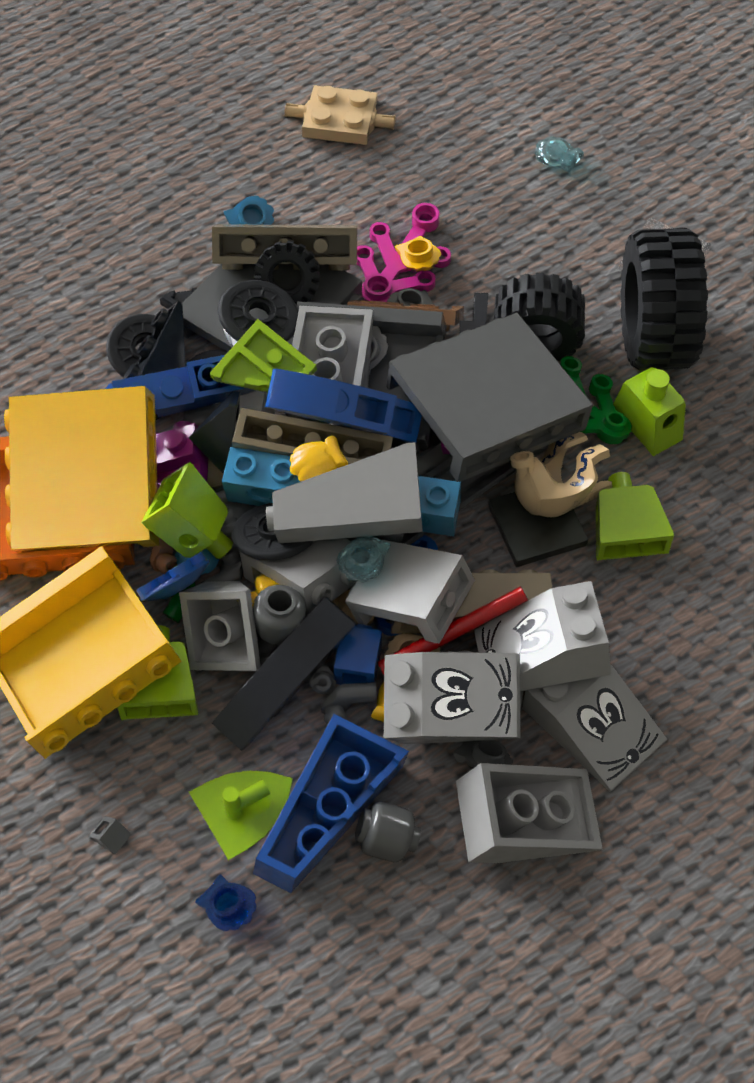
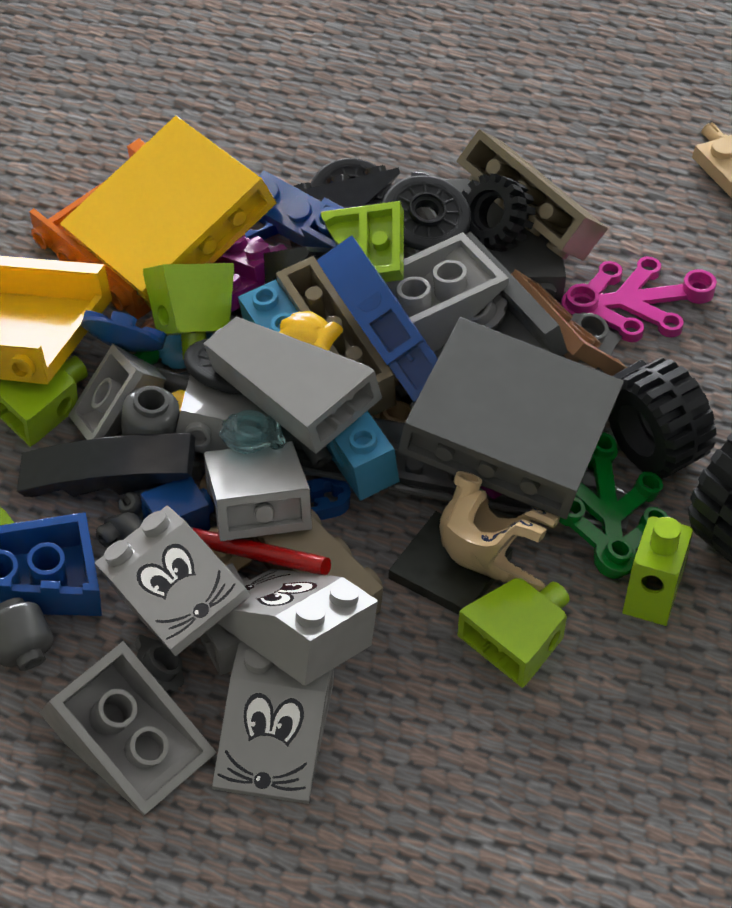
camera: 50 degrees right, 10 degrees down
(251, 211) = (565, 172): dark azure animal -> none
(418, 254) = (646, 302): yellow animal -> none

